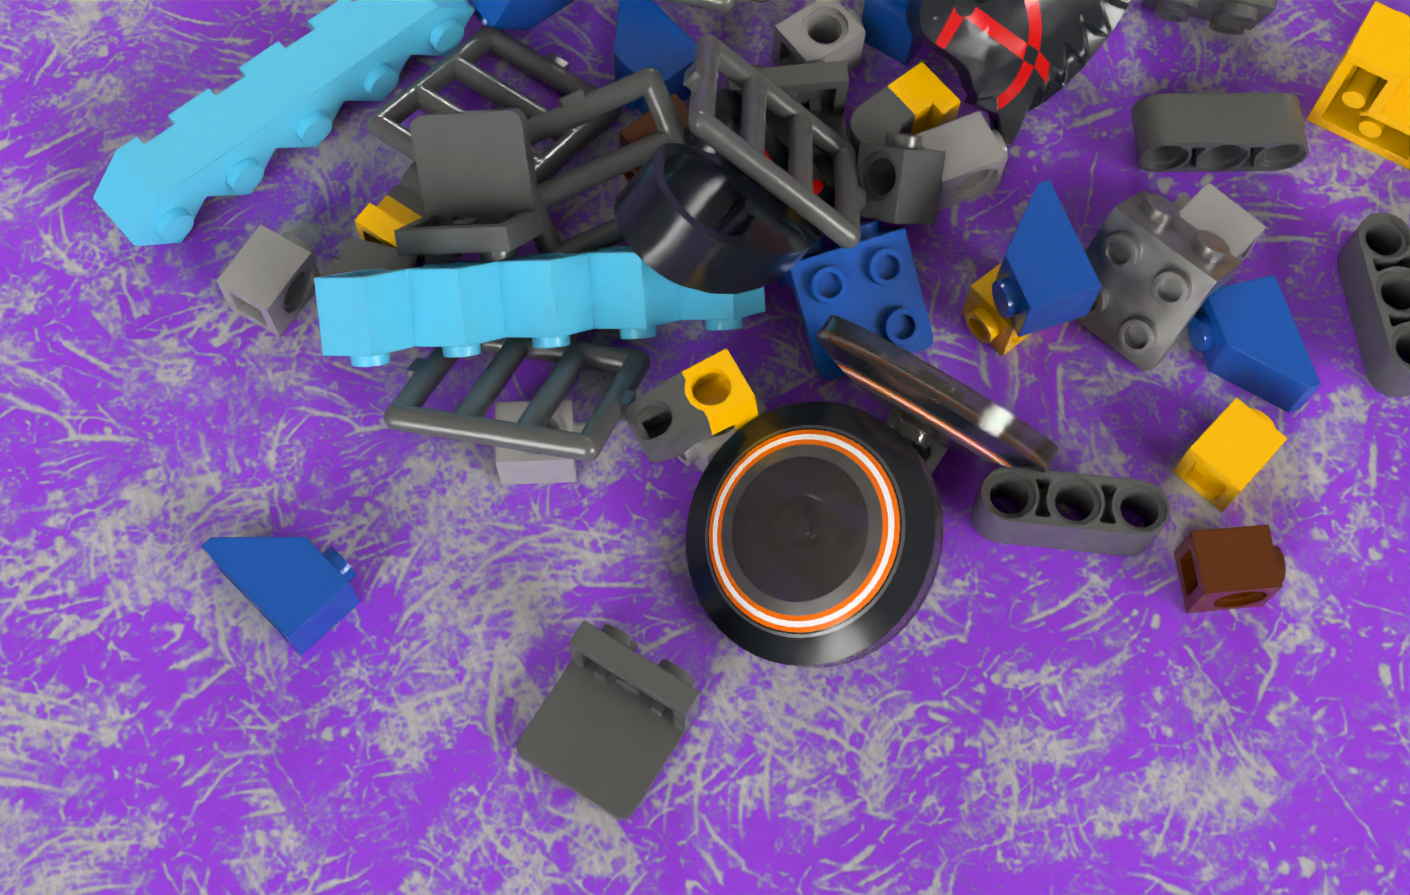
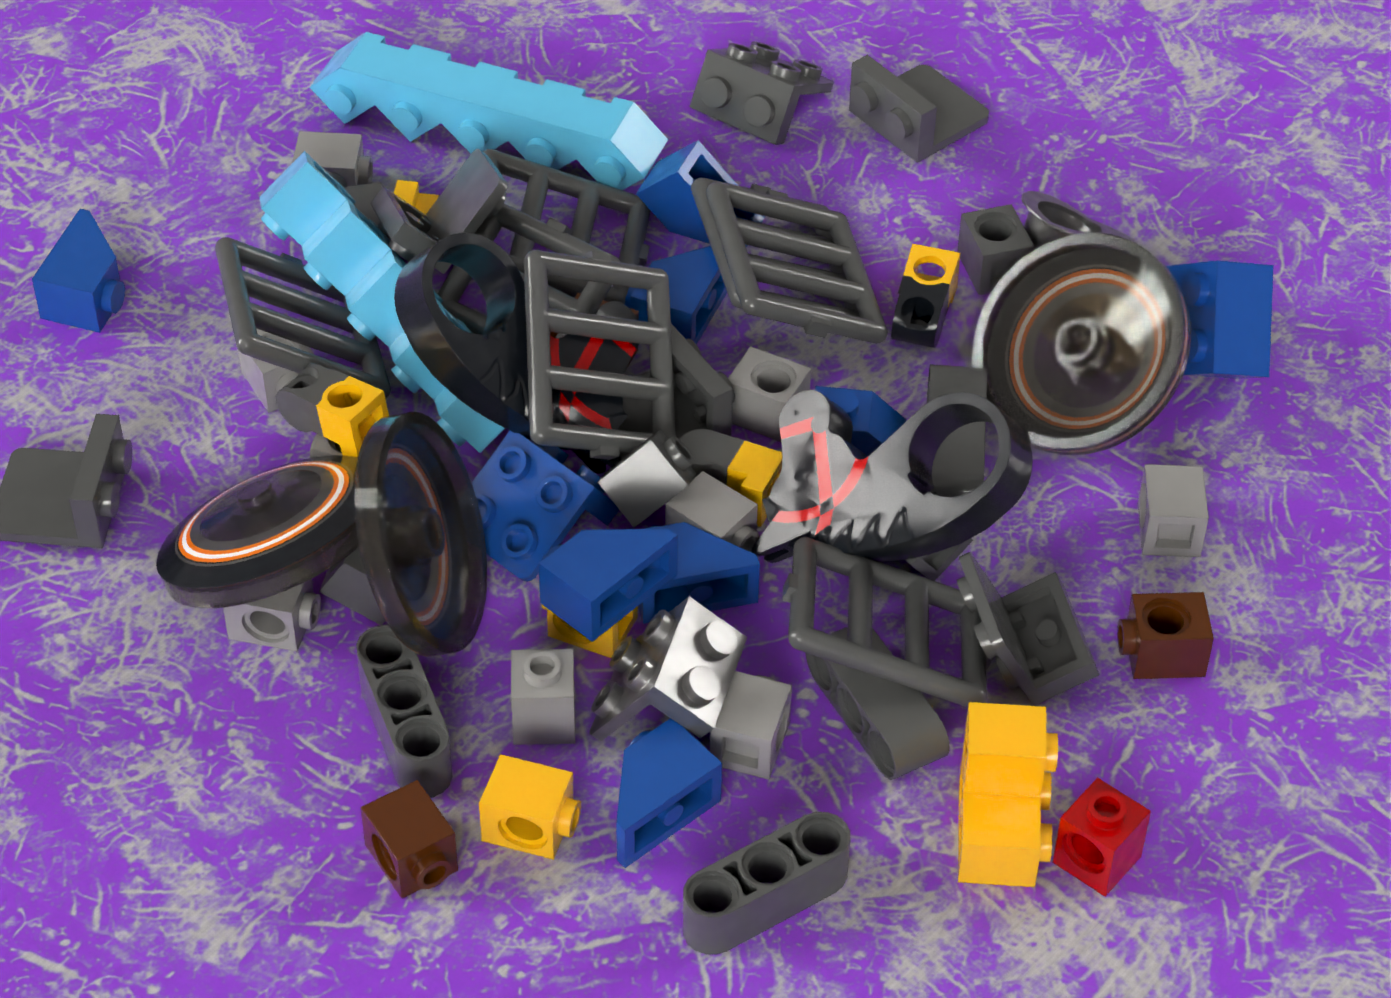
camera: 65 degrees right, 20 degrees down
(997, 204) = (707, 571): none -> blue slope
(1111, 385) = (543, 696): none -> light grey brick
(1132, 121) = (857, 649): none -> dark grey bar

